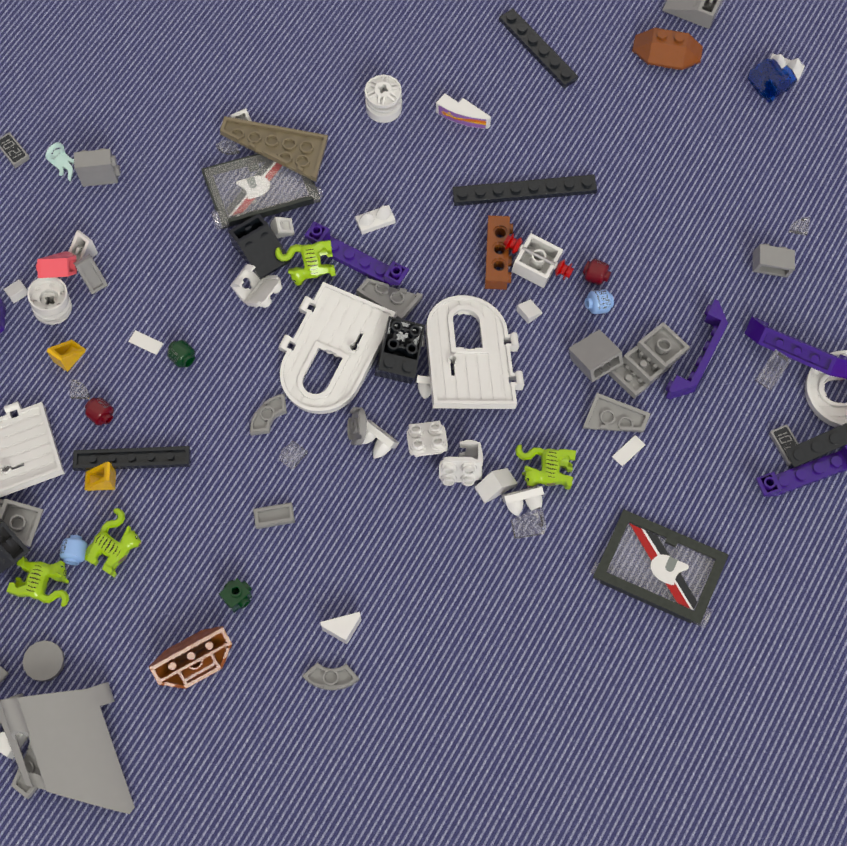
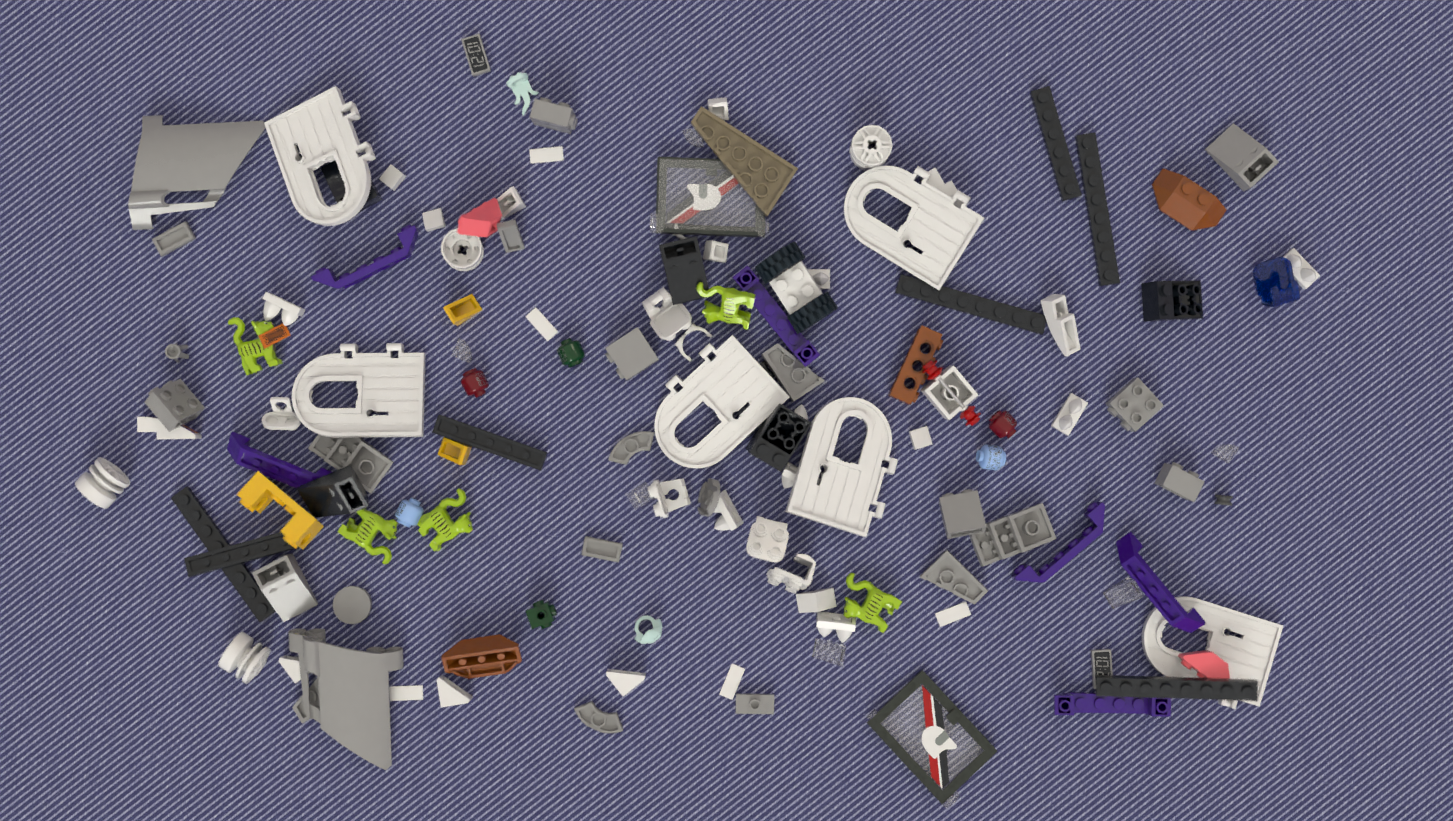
camera: 20 degrees right, 20 degrees up
(102, 205) = (546, 154): none -> white sticker
(126, 729) = (402, 693): none -> white sticker
(172, 708) = (450, 693): none -> white slope
(238, 332) = (631, 354): none -> light grey brick
(285, 295) = (679, 343): none -> white cap
(310, 441) = (660, 489): none -> white piece
(351, 572) = (652, 634): none -> light aqua piece
(364, 223) = (795, 287): none -> plate
(447, 593) = (732, 681): none -> white sticker
(461, 136) = (932, 223): none -> white door
(478, 602) = (754, 703): none -> light grey plate
(597, 84) = (1097, 209): none -> black plate
(608, 174) = (1061, 323): none -> white slope
(651, 245) = (1069, 414): none -> white tile
(692, 125) = (1172, 300): none -> black slope
(702, 215) = (1134, 405): none -> light grey brick
(819, 262) = (1223, 500): none -> dark grey bush

